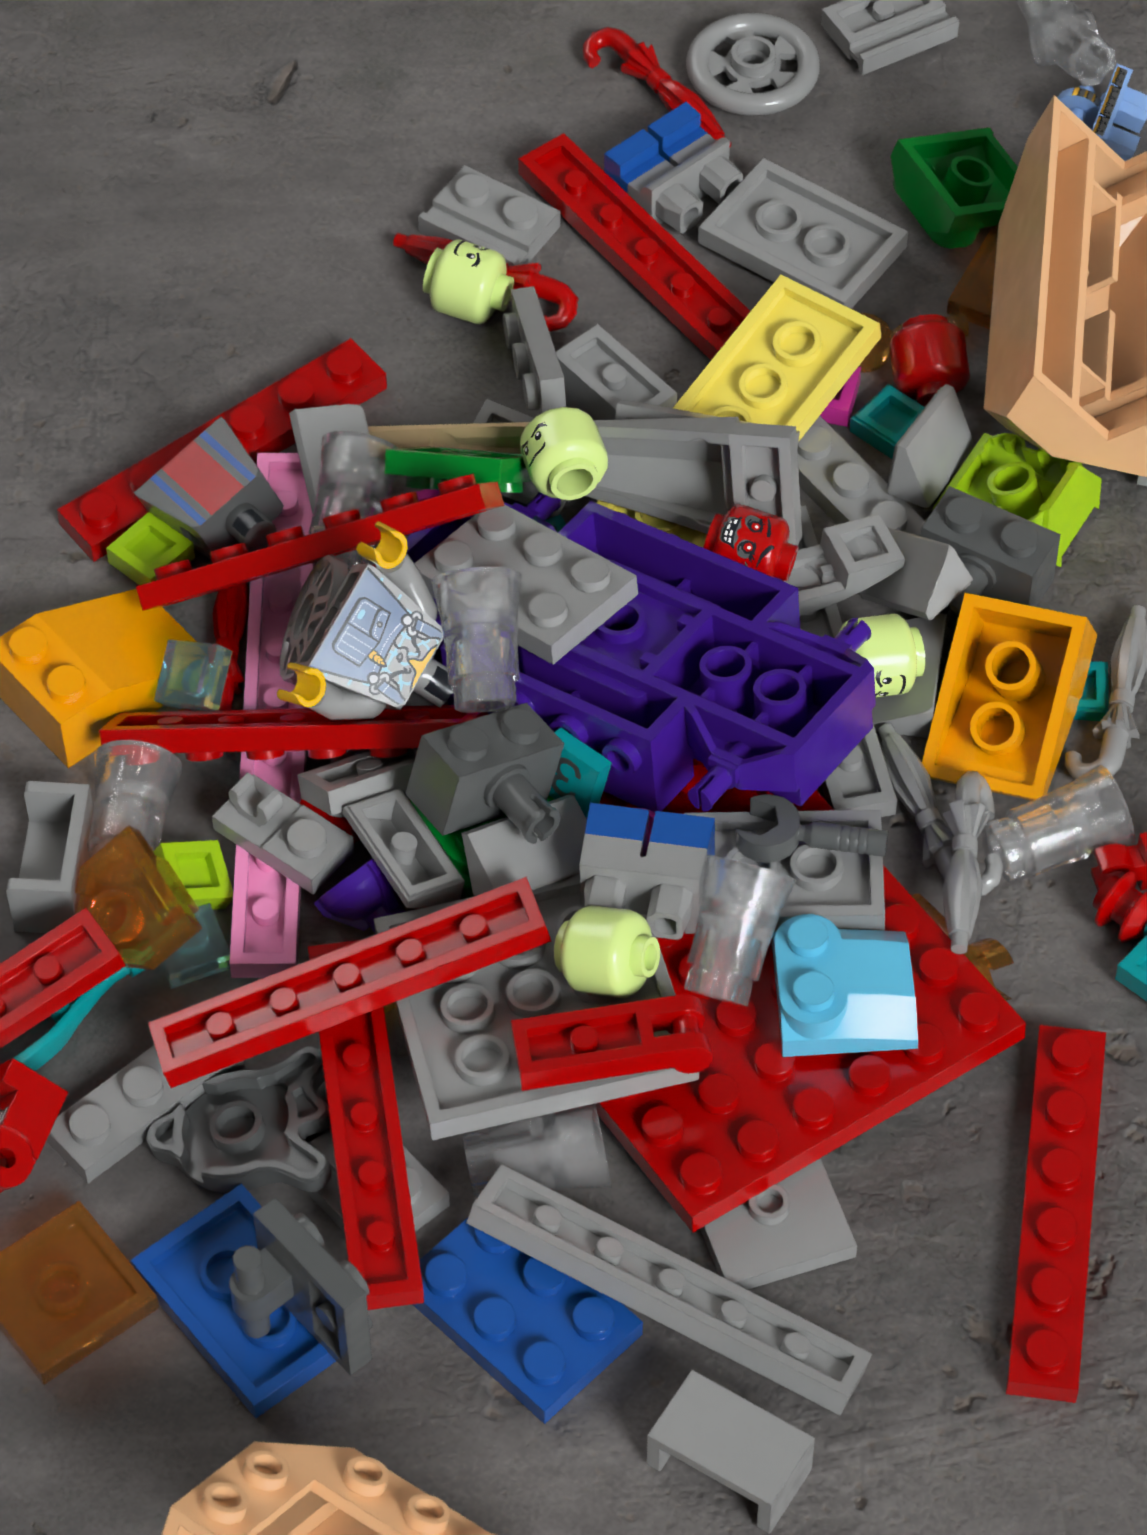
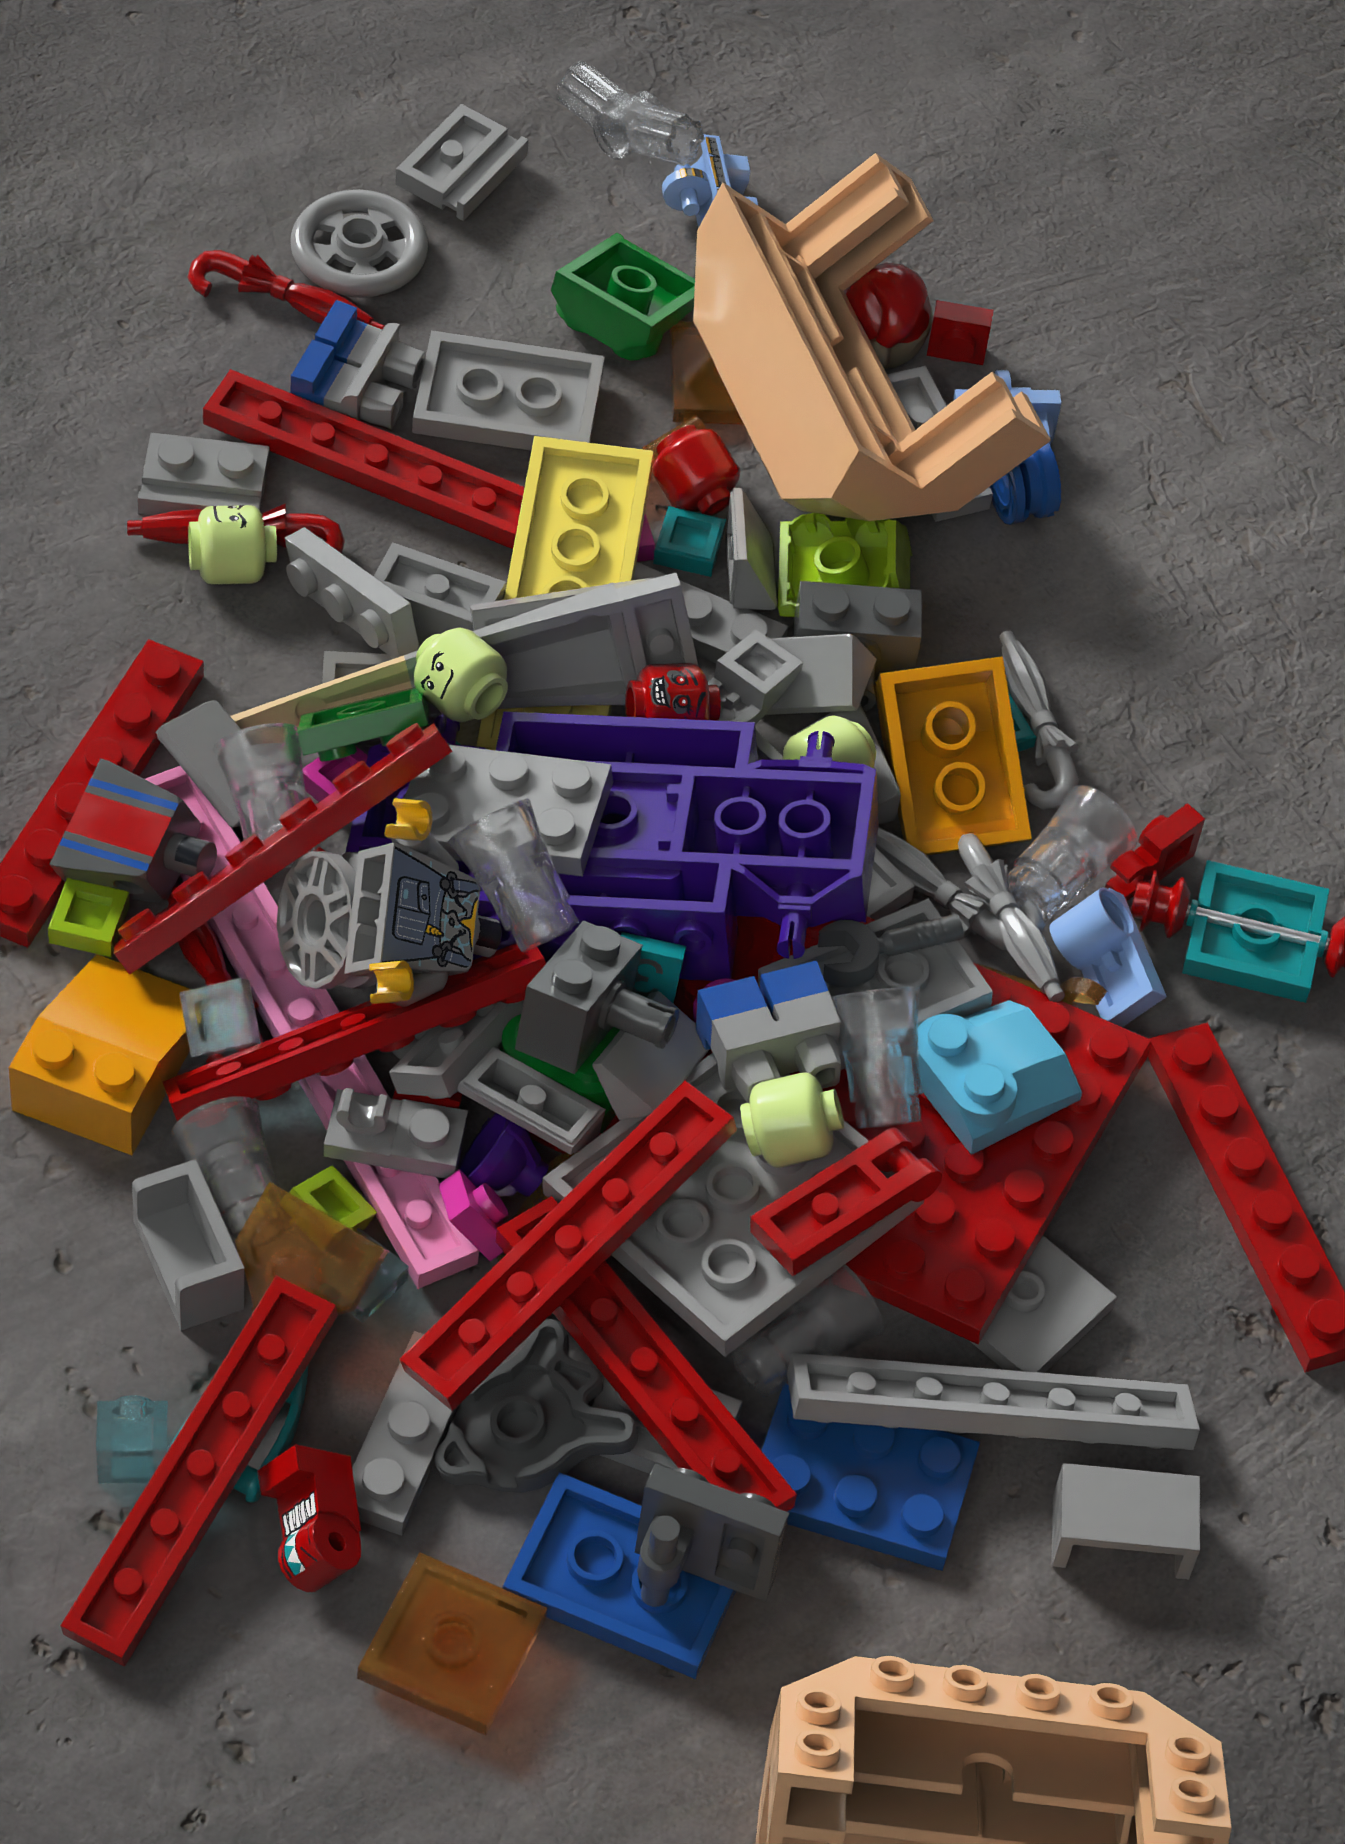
camera: 35 degrees left, 0 degrees up
(306, 923) = (474, 1211): none -> dark pink plate
(1048, 921) = (1108, 948): none -> light blue plate

